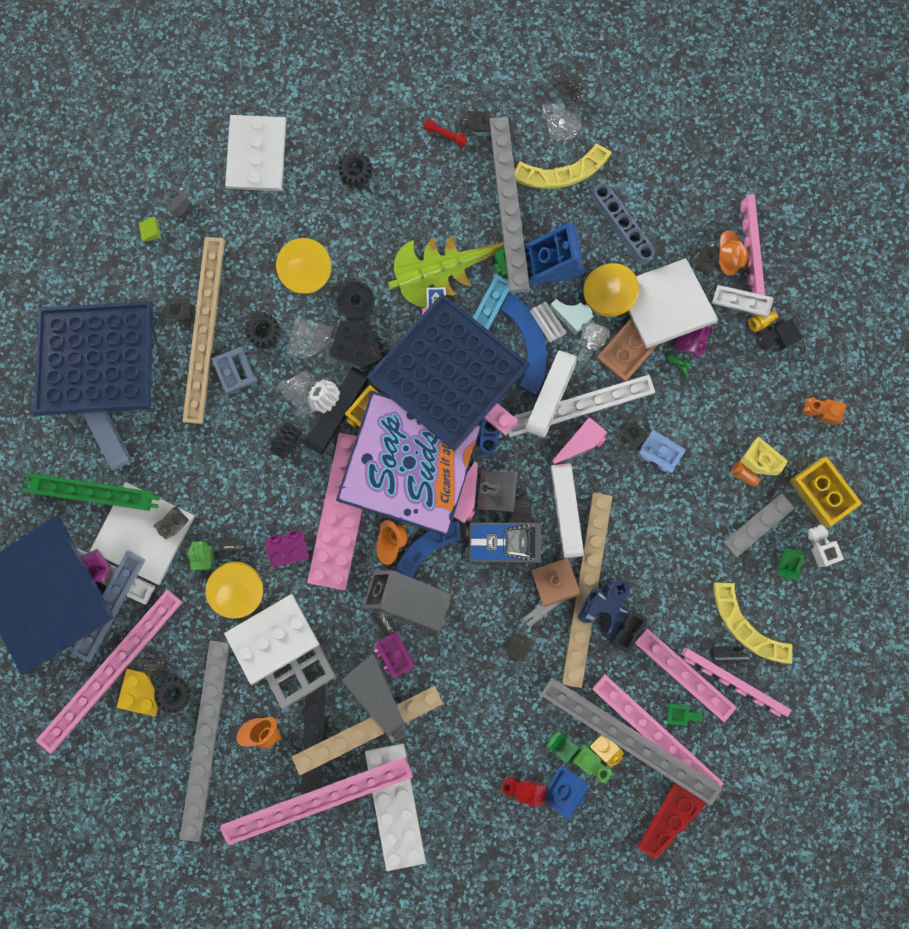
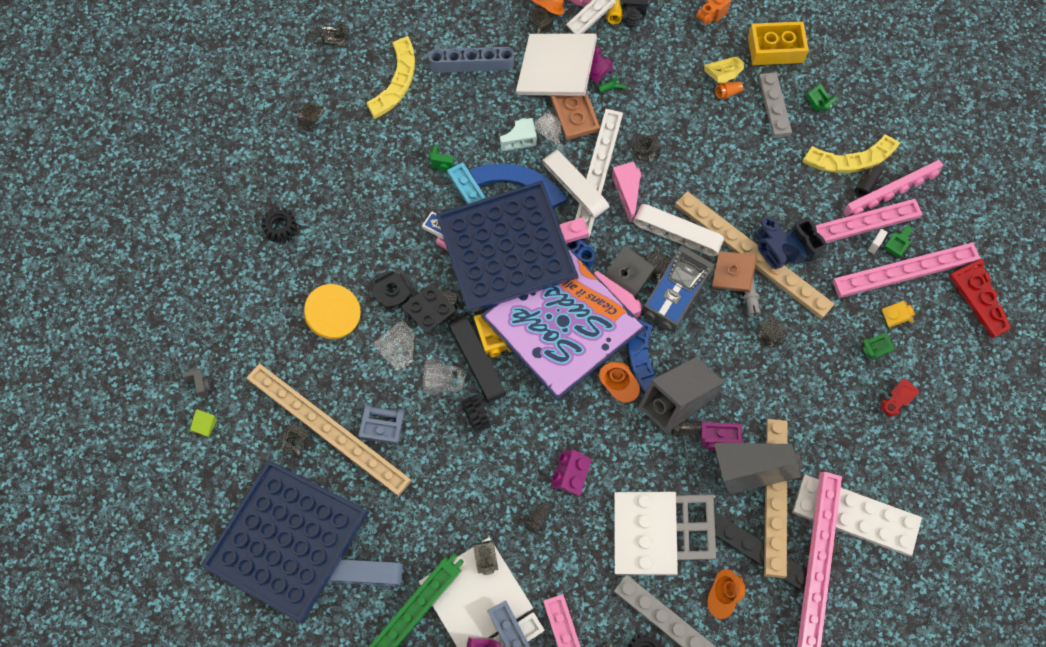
camera: 60 degrees left, 15 degrees down
(201, 556) = (532, 550): bright green brick -> none
(234, 590) = (581, 539): yellow piece -> none
(256, 153) = (204, 295): white plate -> none
(263, 341) = (355, 371): black tyre -> none
(323, 396) = (458, 357): white gear -> none
(337, 526) = (574, 416): bright pink plate -> none
(416, 276) = (405, 230): lime animal -> none
(430, 126) = (287, 149): red bar -> none
(509, 205) = (398, 127): light grey plate -> none
(549, 321) = (512, 156): white tile -> none
(554, 256) = (464, 118): blue brick -> none
(561, 124) = (360, 54): clear piece -> none
(565, 792) = (918, 362): blue tile -> none
(590, 763) = (902, 331): bright green brick -> none
(611, 290) = (519, 96): yellow piece -> none
(631, 741) = (900, 290): light grey plate -> none
(661, 451) = (674, 134): light blue bracket -> none
(669, 694) = (877, 241): none -> white tile
(824, 551) = (823, 71): white brick -> none

